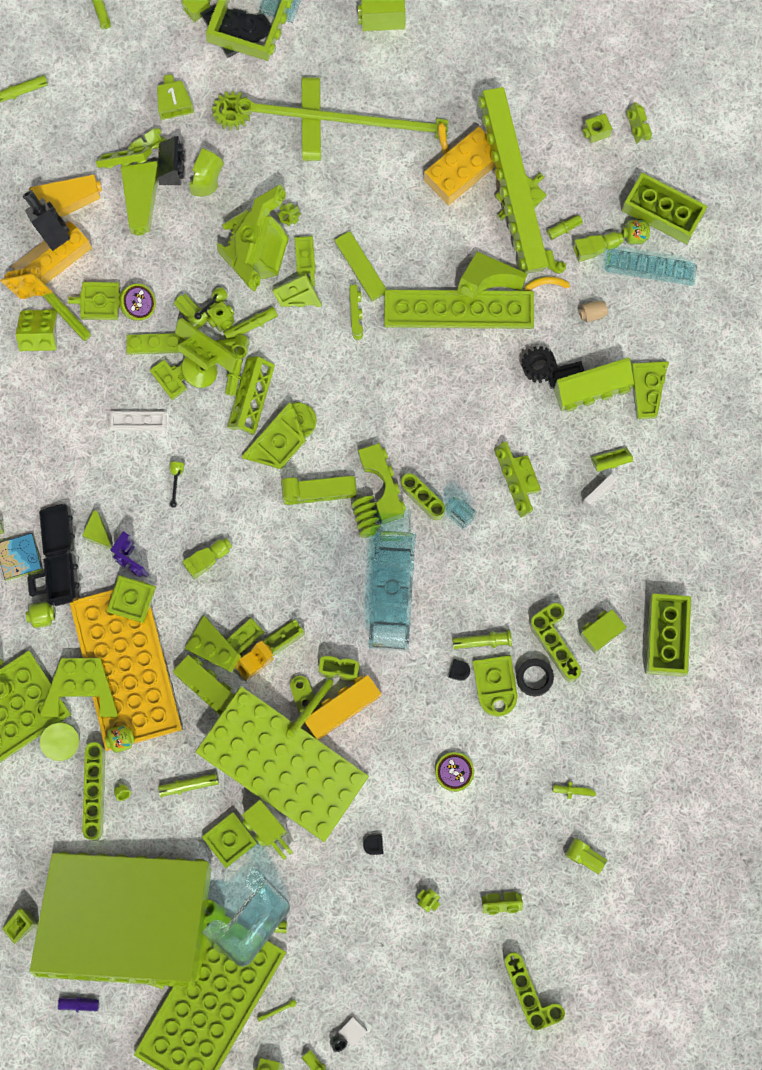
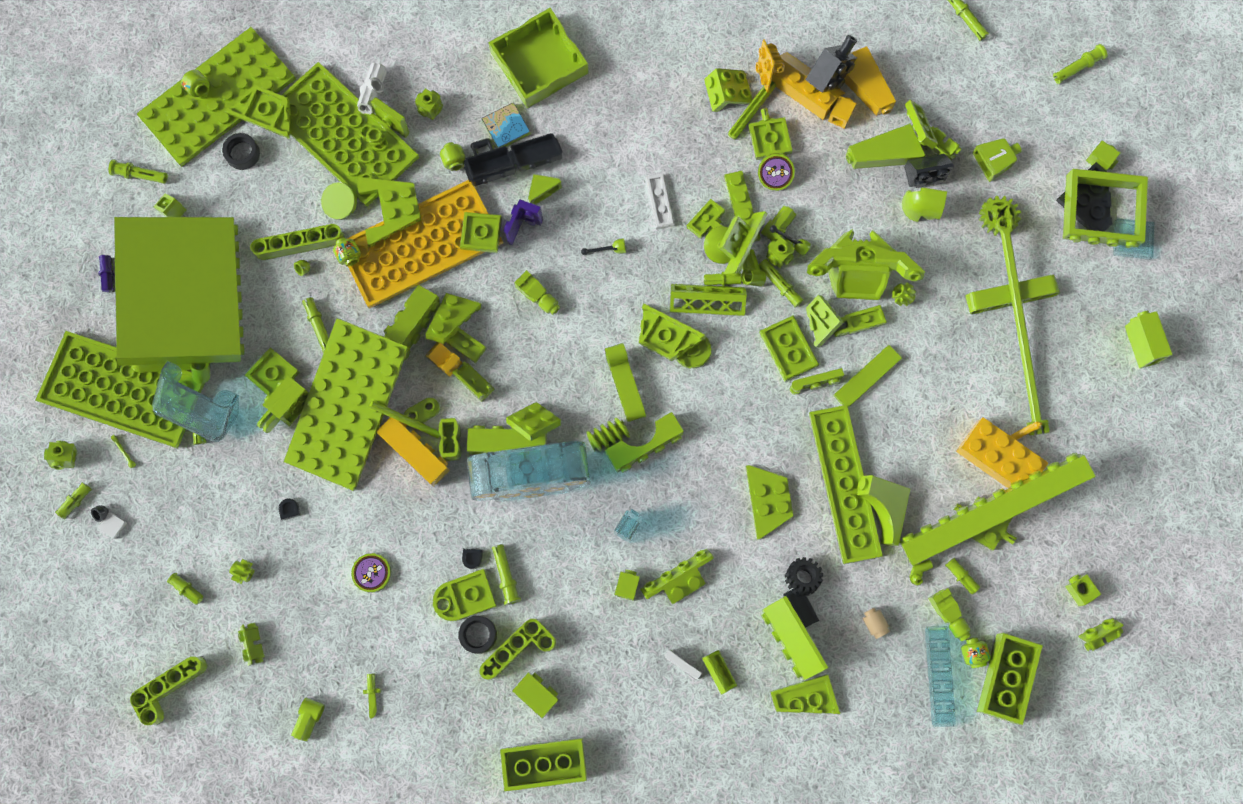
camera: 80 degrees right, 0 degrees up
(90, 227) = (842, 111): none -> yellow brick
(316, 331) = (789, 348): none -> lime tile
(339, 583) = (533, 421): none -> lime plate
(353, 613) = (498, 439): none -> lime brick
(419, 488) = (642, 477): lime beam -> none
(434, 962) = (185, 588): none -> lime axle
(460, 381) = (769, 500): none -> lime wing
(515, 527) = (627, 585): none -> lime brick
(547, 280) = (899, 569): yellow piece -> none

